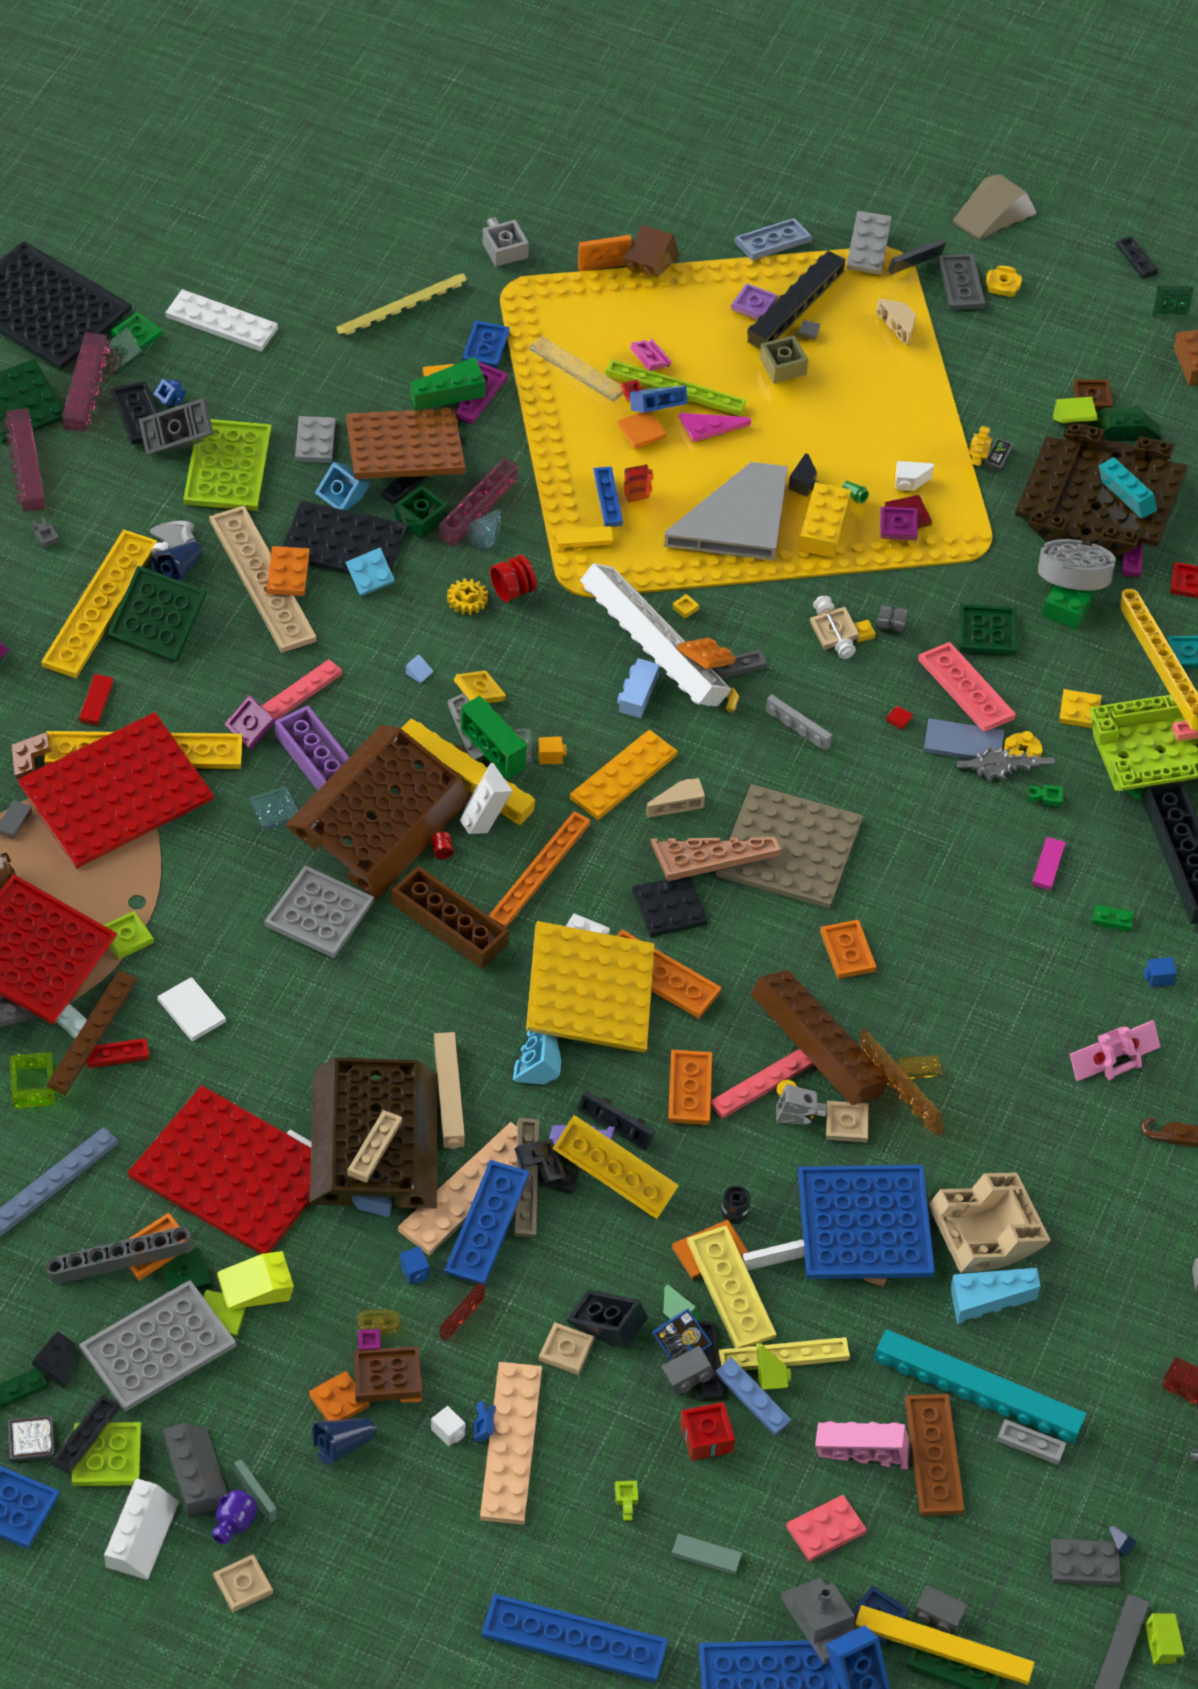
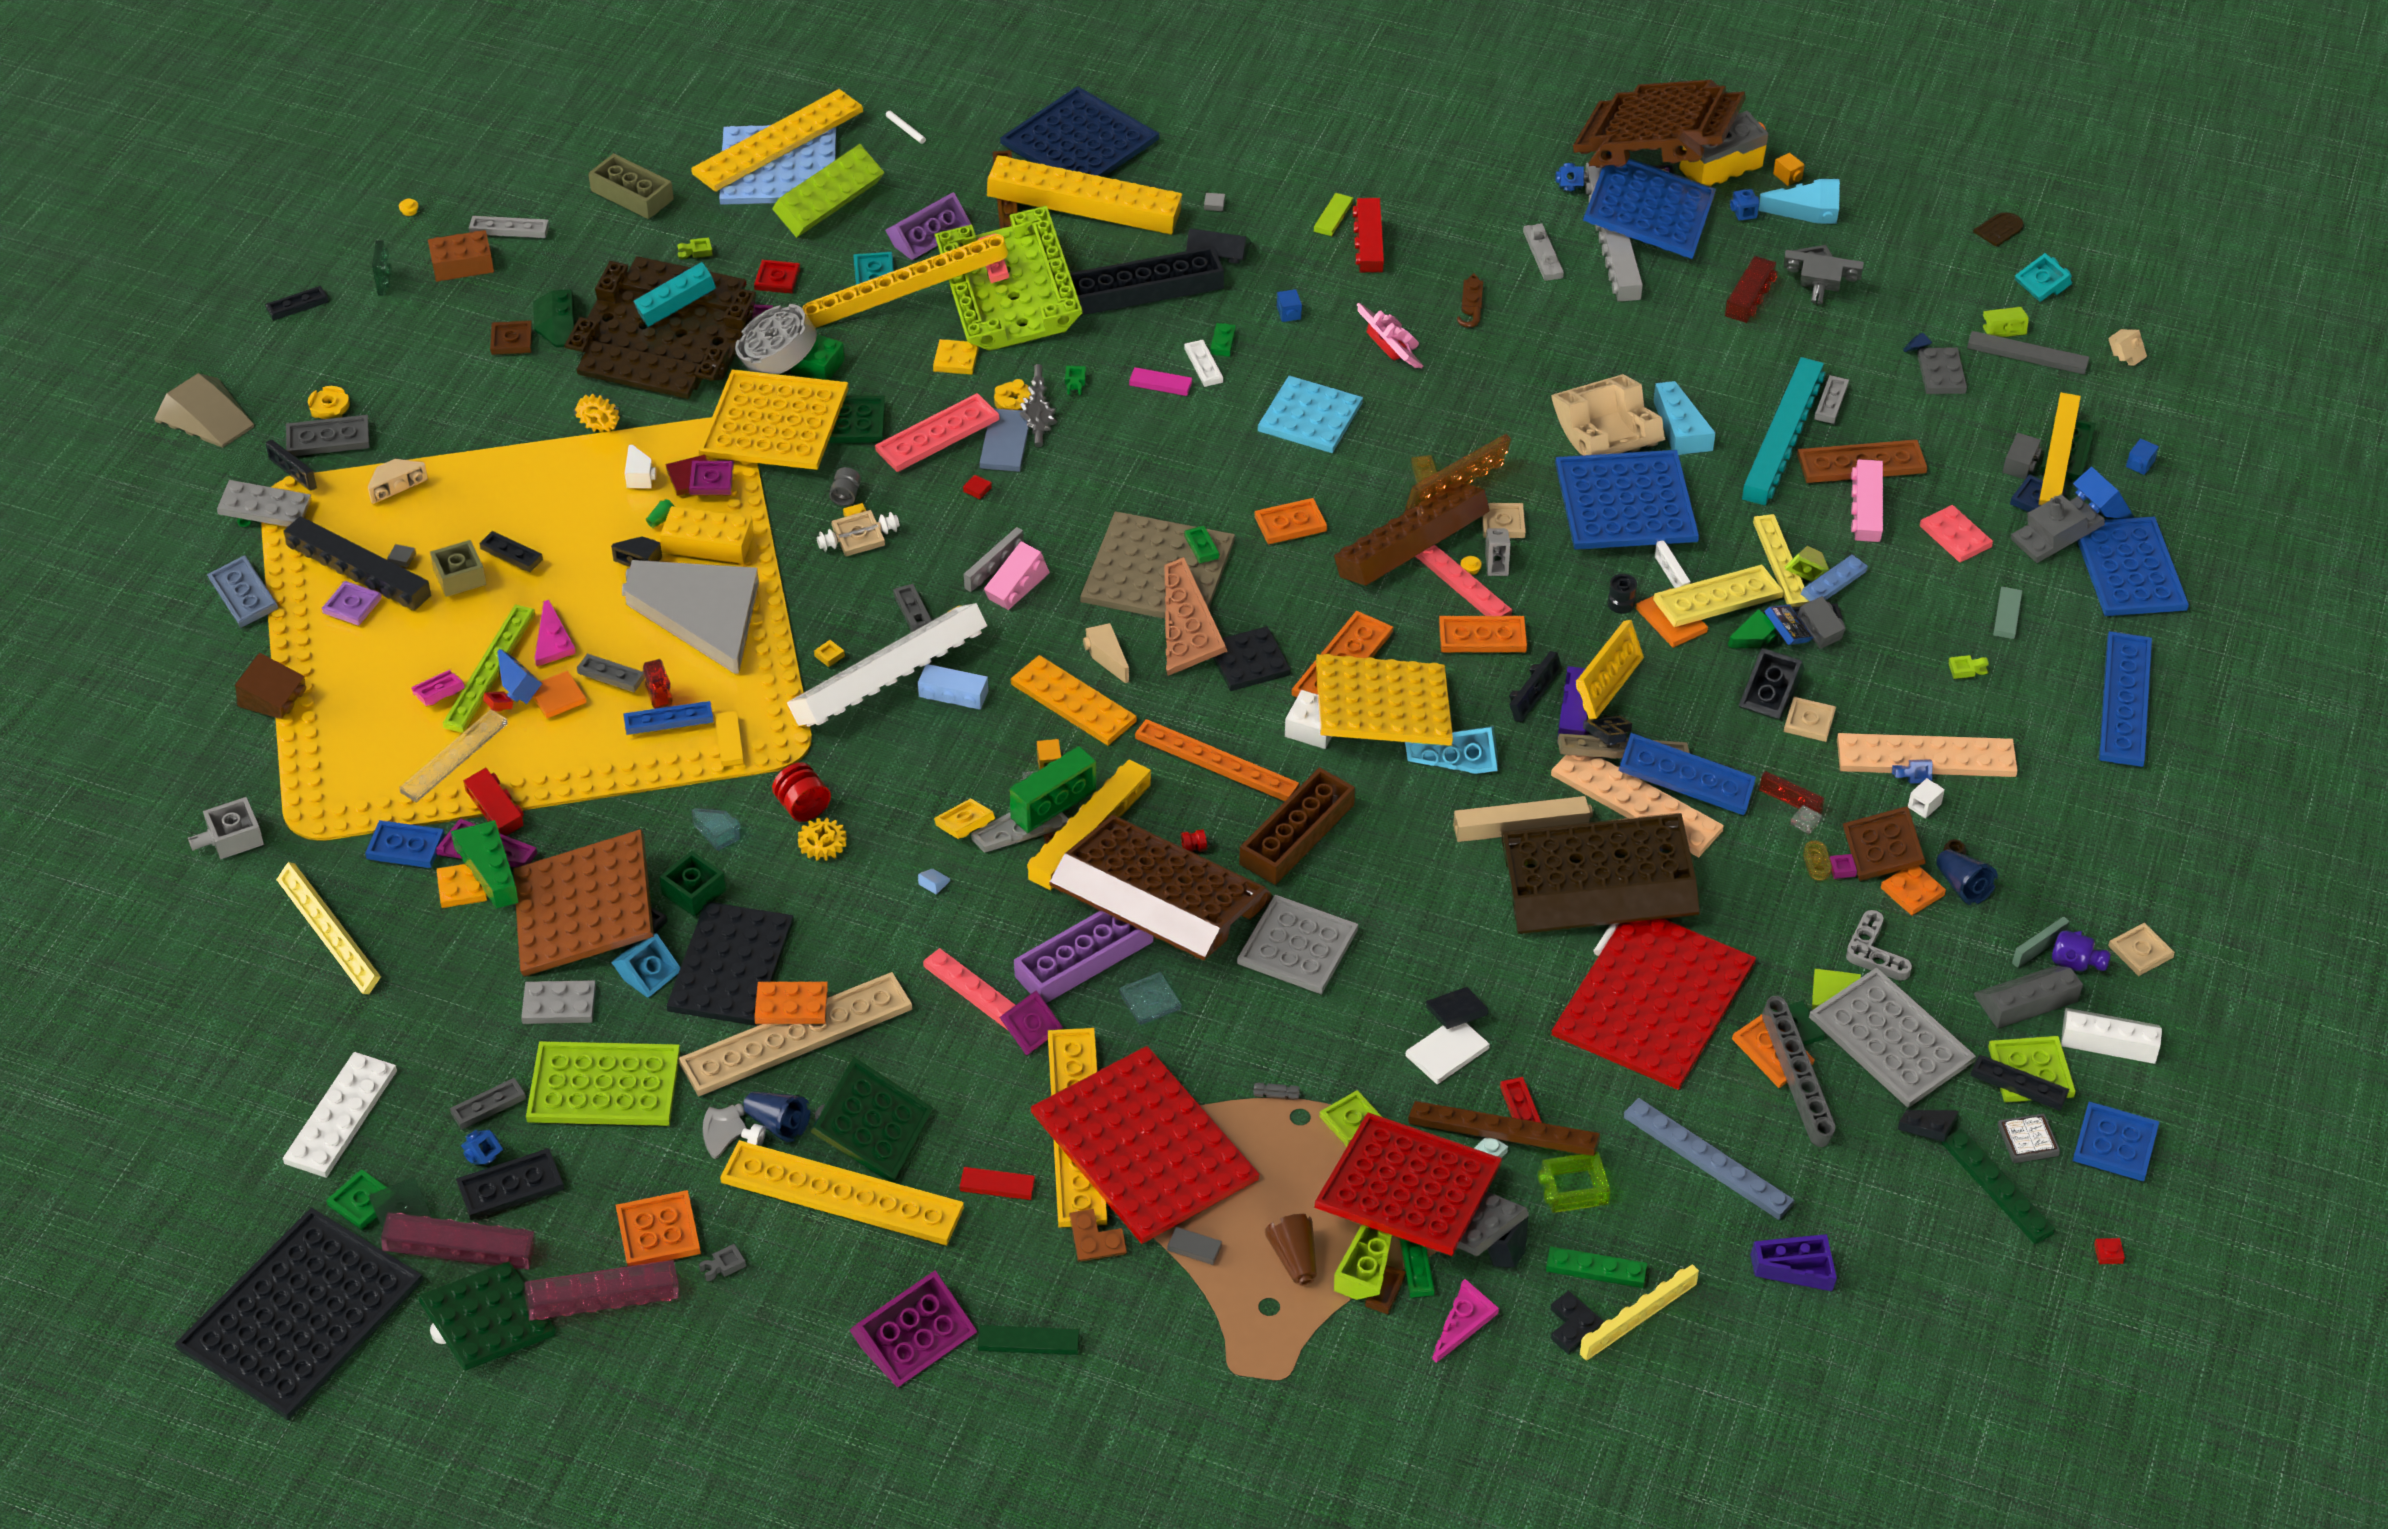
camera: 90 degrees left, 5 degrees down
(82, 496) = (658, 1229): none -> orange plate
(162, 885) = (1276, 1091): none -> dark grey axle
(176, 427) = (559, 1120): dark grey brick -> none
(217, 398) = (487, 1103): none -> dark grey plate
(232, 1016) = (1457, 1008): none -> black tile
(256, 1281) = (1798, 955): neon yellow slope -> none
(268, 1345) = (1865, 948): none -> light grey beam
(370, 572) = (789, 926): medium azure plate -> none
(374, 1146) = (1635, 845): tan plate -> none
(379, 1437) = (1955, 845): none -> dark brown plate
(414, 1265) = (1745, 834): blue brick -> none
(432, 1322) = (1806, 819): none -> clear plate
(478, 501) = (676, 830): clear pink brick -> none
(486, 802) = (1143, 793): white slope -> none
(518, 390) = (494, 801): none -> red brick
(603, 253) = (264, 730): orange tile -> none
(664, 458) = (610, 672): none -> dark grey plate
(707, 653) = (918, 616): orange plate -> none
(707, 1431) = (1885, 607): red container -> none
(772, 736) = (1017, 576): none -> bright pink wedge
(805, 870) = (1201, 544): none -> green plate
(810, 395) = (511, 551): none -> black plate
(977, 568) = (774, 419): none -> yellow plate
(1004, 980) = (1310, 414): none -> medium azure plate
(1074, 410) = (548, 342): lime slope -> none
(1077, 900) = (1203, 363): none -> white tile

